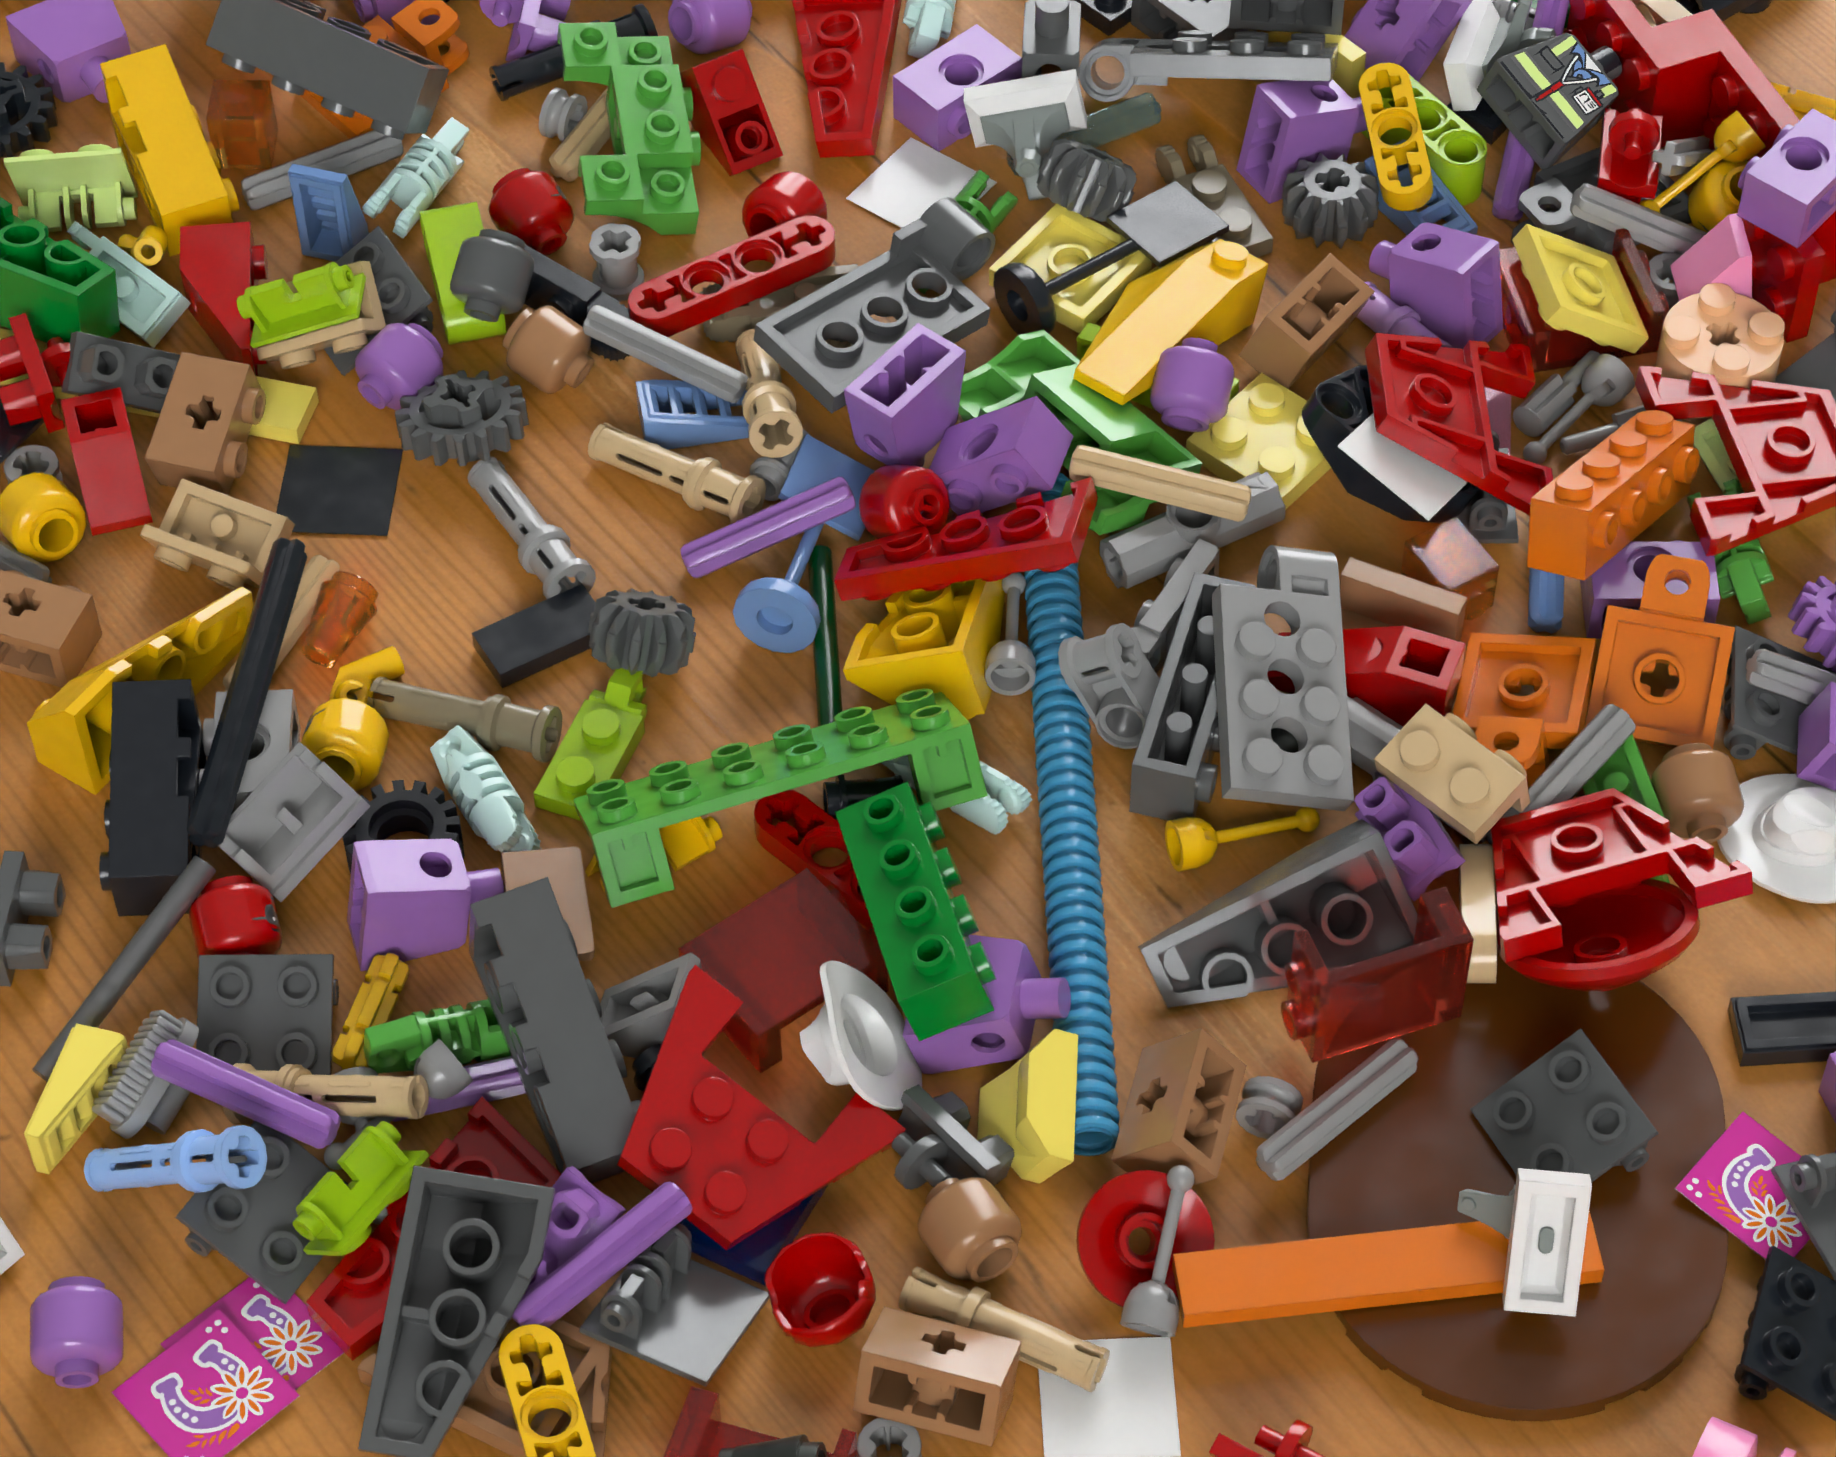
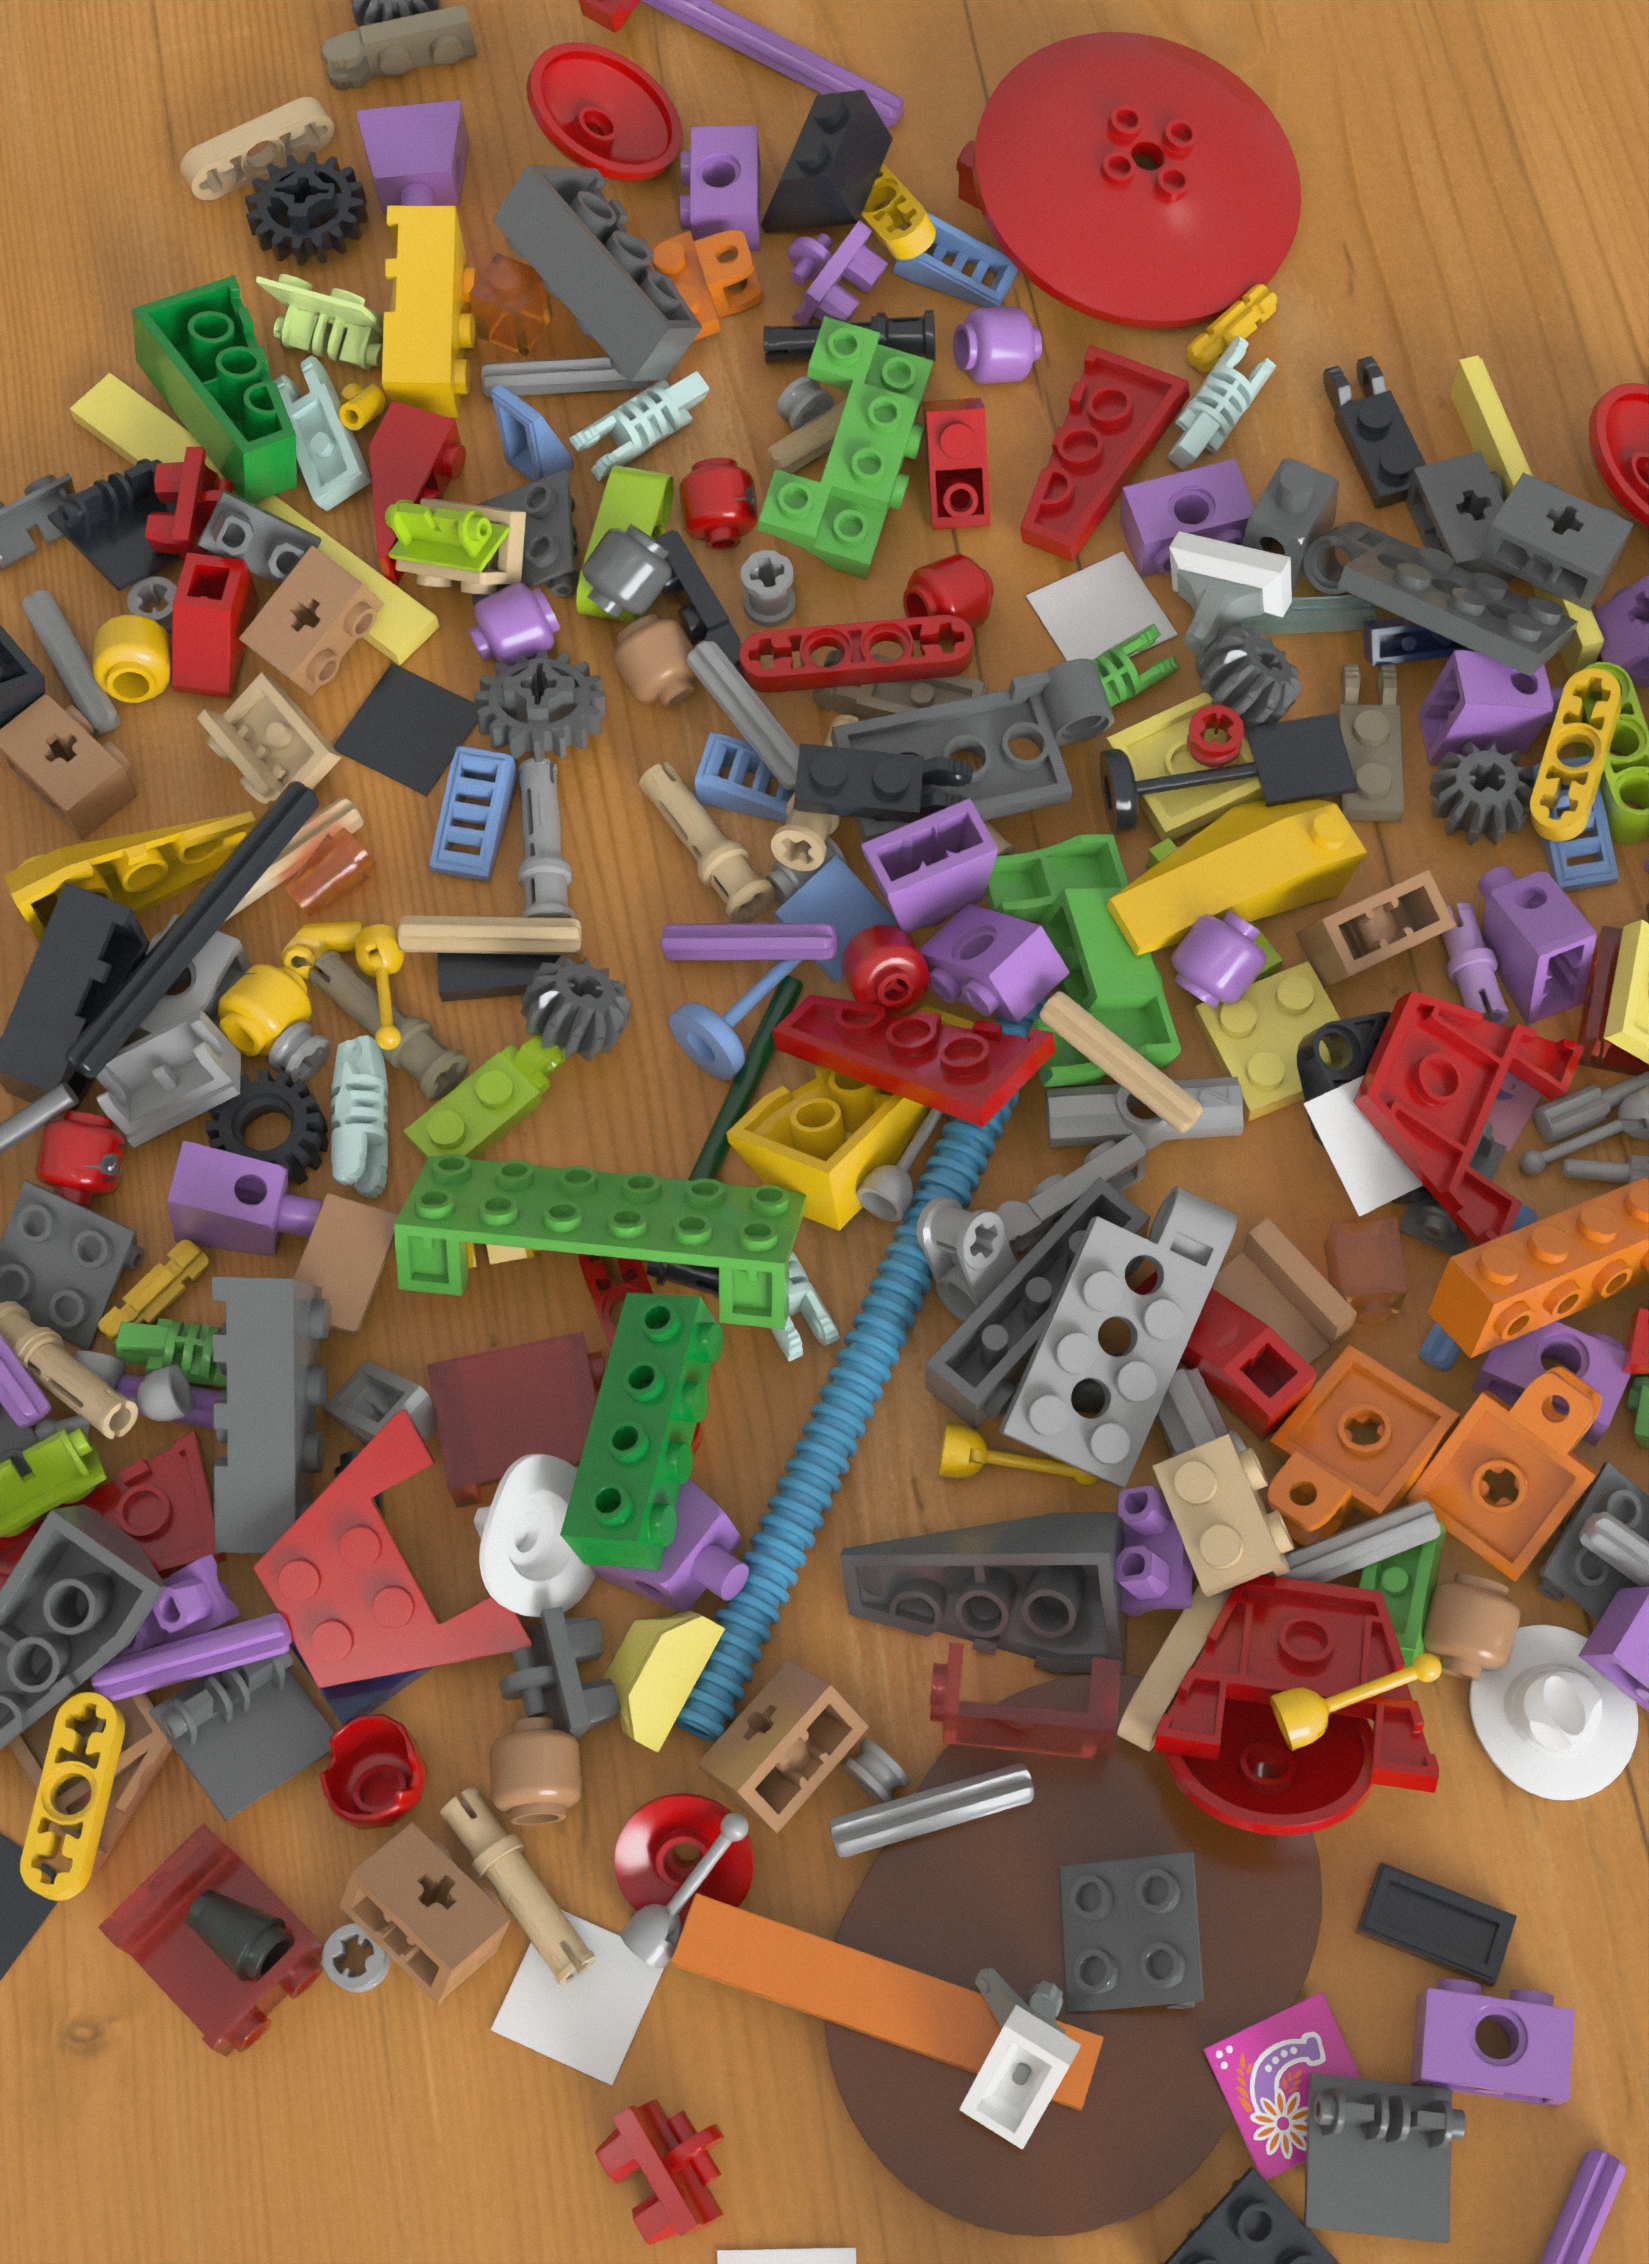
camera: 30 degrees right, 15 degrees up
(397, 764) = (299, 1052): none -> light grey bush
(437, 670) = (378, 966): none -> yellow hinge
(438, 492) = (477, 776): none -> medium blue slope
(524, 607) = (490, 935): none -> tan axle
(820, 349) = (875, 783): none -> black hinge
(1084, 216) = (1215, 754): none -> red bush
(1205, 109) = (1402, 641): none -> dark blue piece
(1612, 882) = (1304, 1714): none -> yellow hinge

